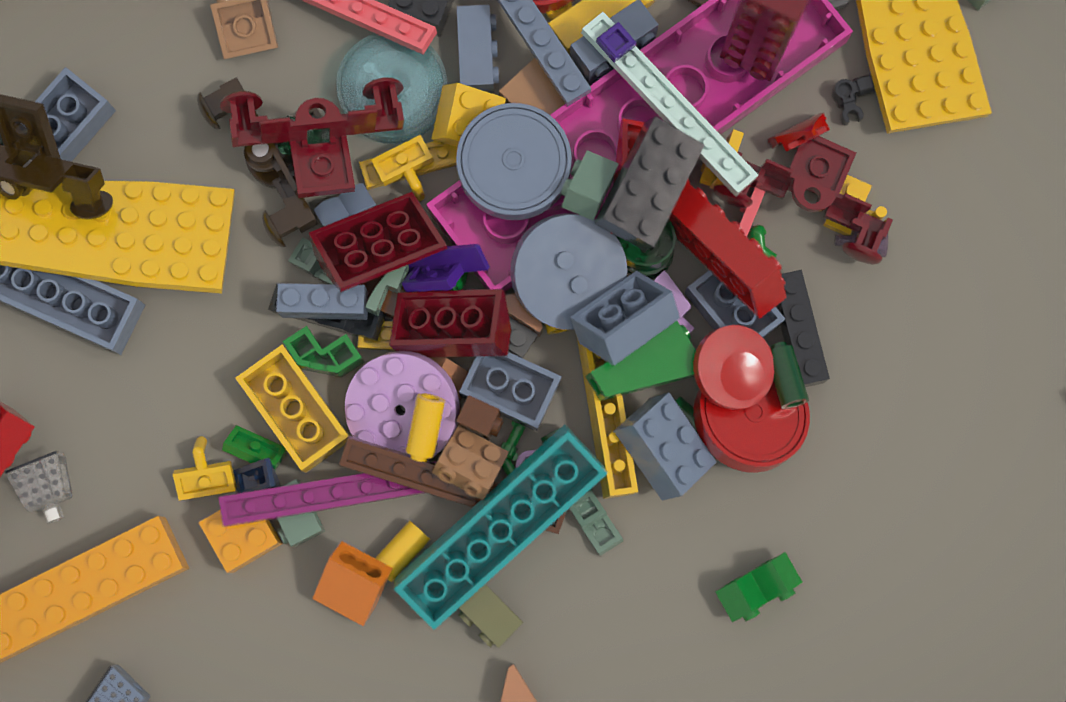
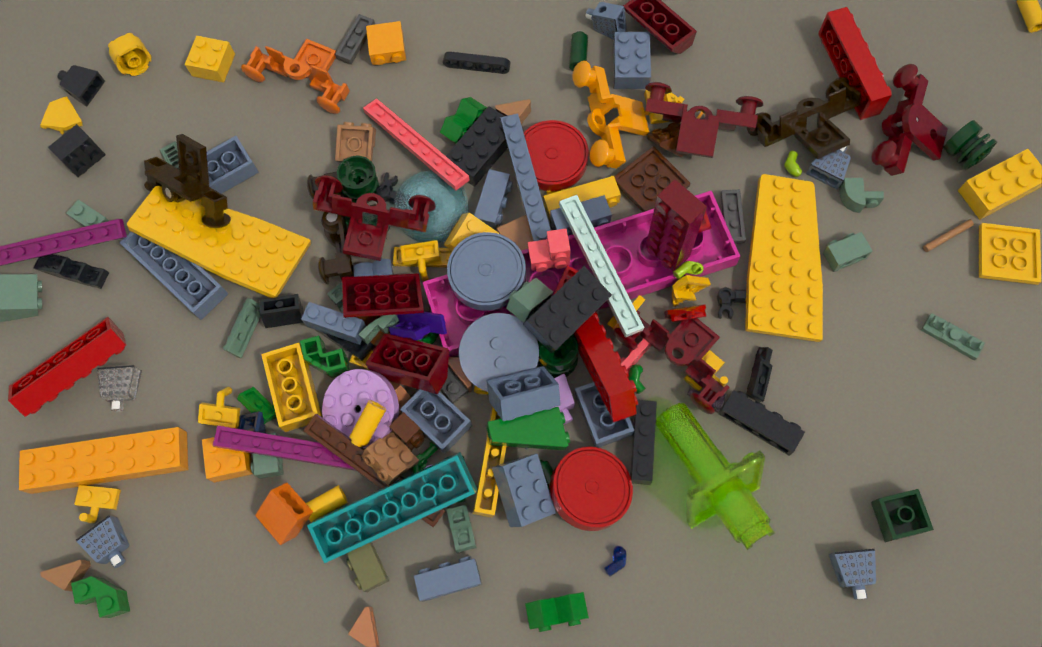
camera: 25 degrees right, 10 degrees down
(78, 649) = (96, 498): none -> yellow plate
(189, 347) = (243, 328): none -> sand green plate
(236, 306) = (281, 311): none -> black brick
(272, 65) = (357, 177): none -> dark green wheel
(314, 83) = (386, 188): none -> black bar
(596, 106) = (550, 253): none -> coral brick
(602, 594) = (447, 579): none -> sand blue brick
(616, 42) = (578, 215): dark purple tile -> none
(733, 367) = (587, 450): piece -> none
(788, 99) = (686, 287): none -> yellow slope
(788, 377) = (622, 469): dark green brick -> none
(789, 69) = (688, 267): none -> lime arm
(816, 497) = (619, 561): none -> clear blue arm
(922, 355) = (719, 485): none -> clear neon green piece
(924, 187) = (760, 374): none -> black hinge
(946, 252) = (762, 423): none -> black brick

